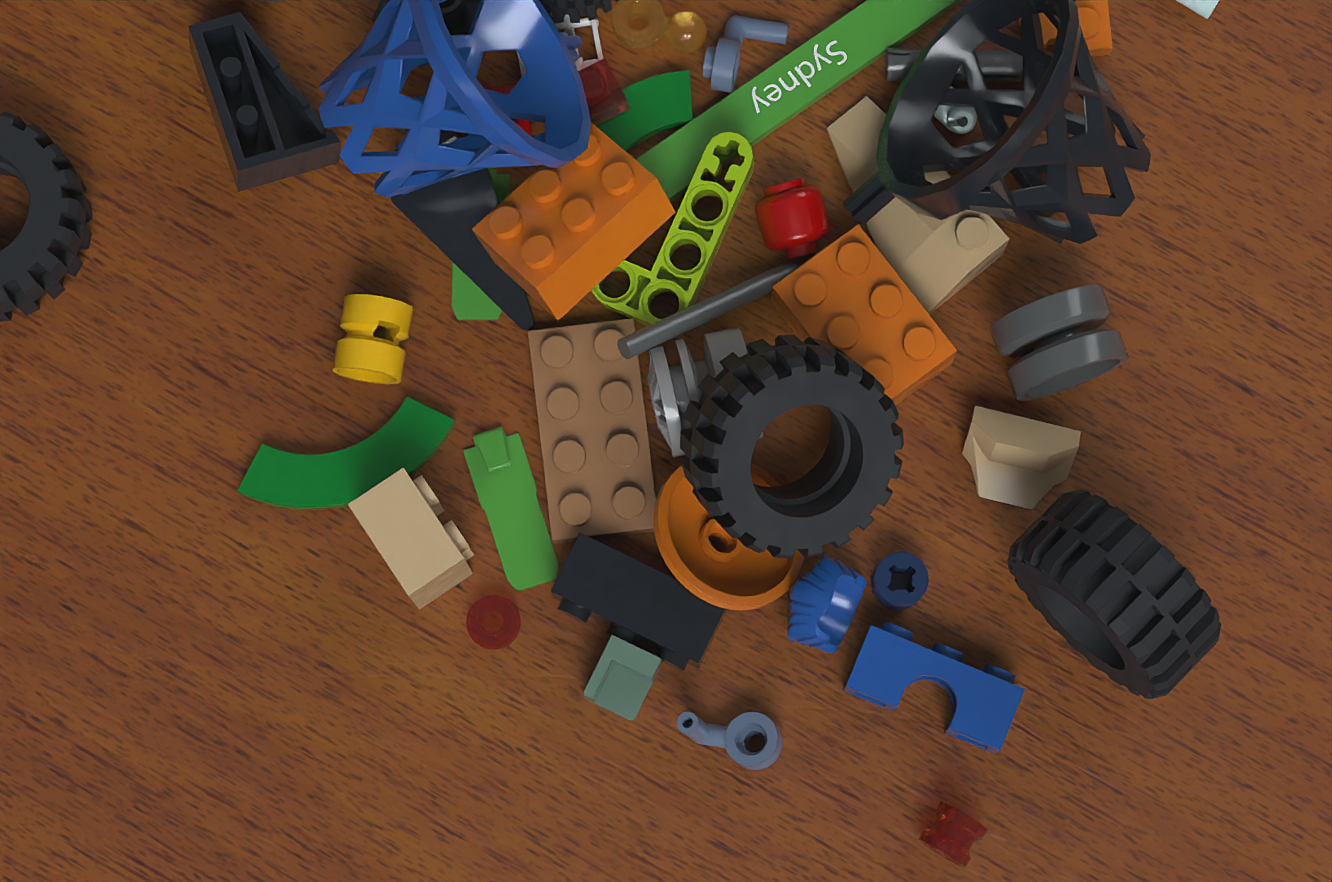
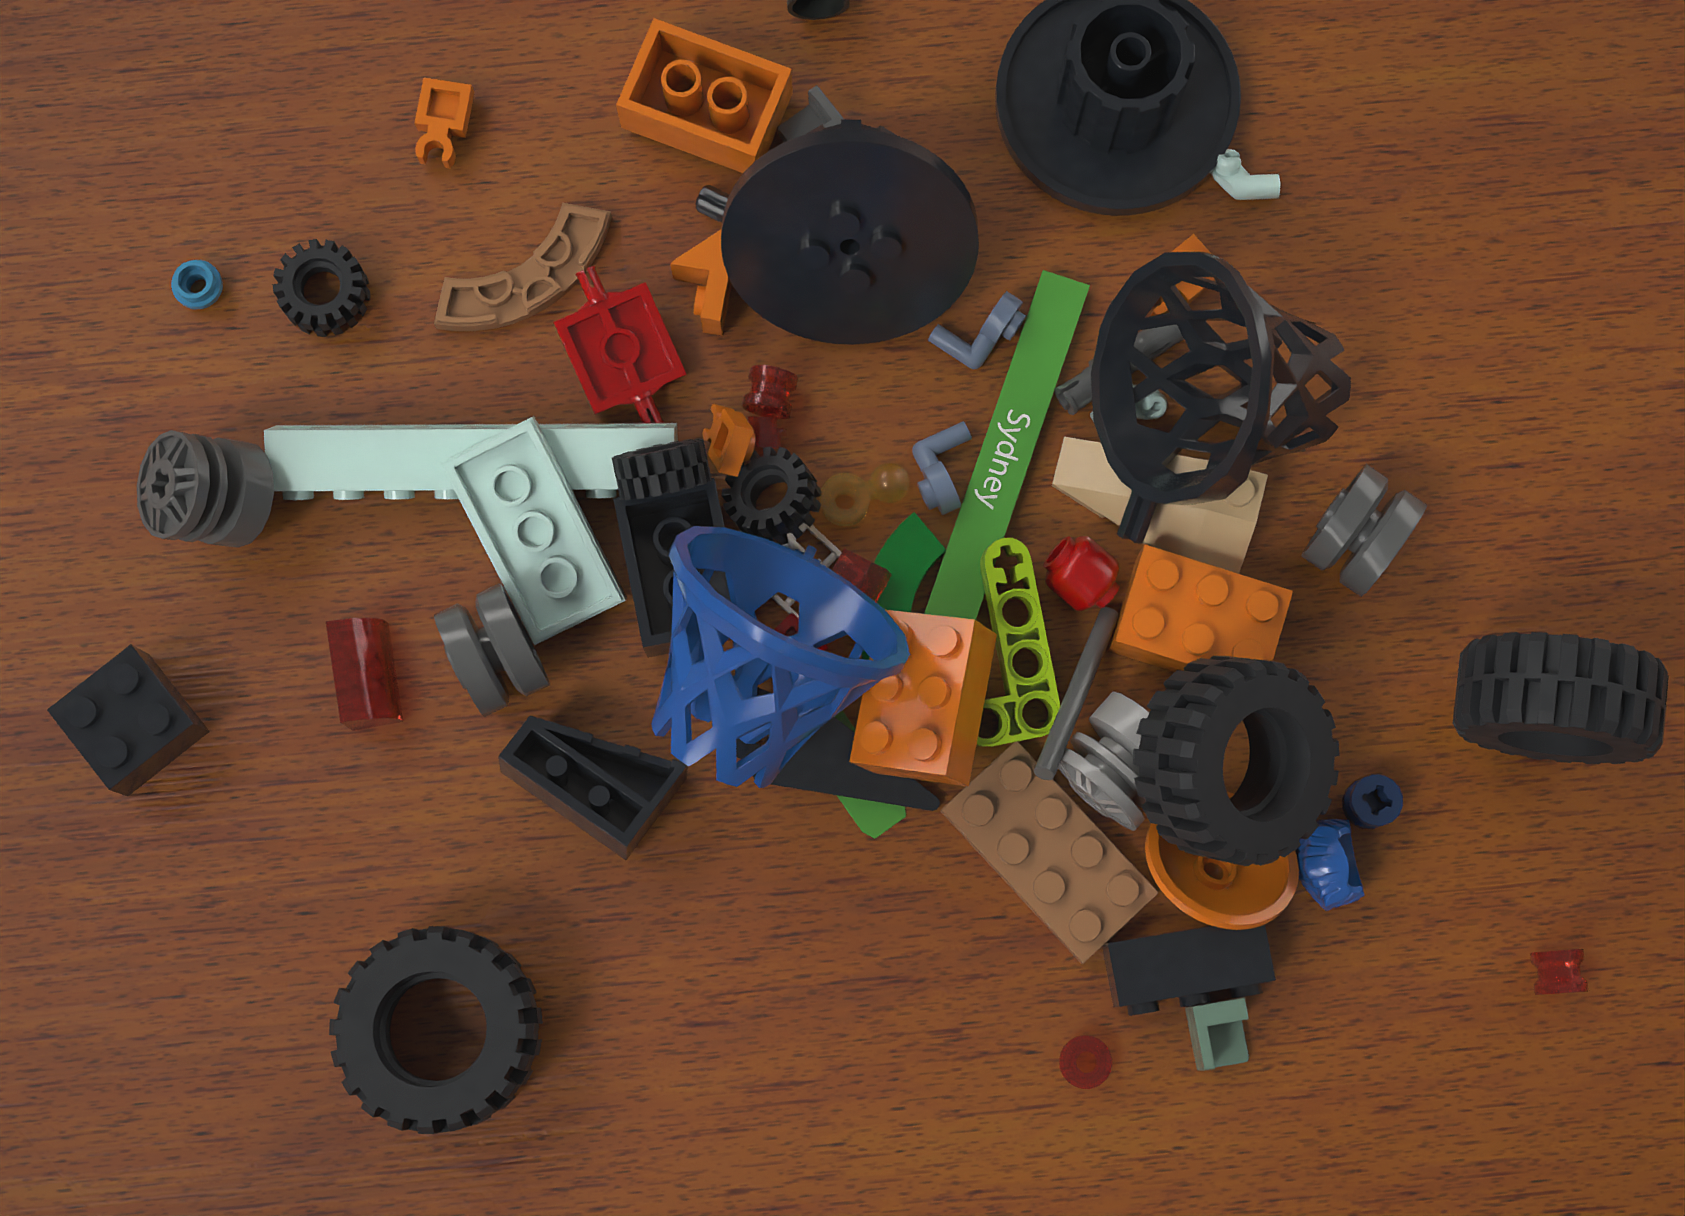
camera: 40 degrees left, 0 degrees up
(344, 475) = (883, 1025): green tile -> none
(372, 339) = (826, 904): yellow wheel -> none
(411, 539) = (982, 1043): tan brick -> none
(512, 508) = (1029, 959): bright green piece -> none
(737, 737) = (1338, 1017): sand blue plate -> none
(980, 699) = (1506, 856): blue arch -> none
(1017, 456) = (1389, 640): tan slope -> none

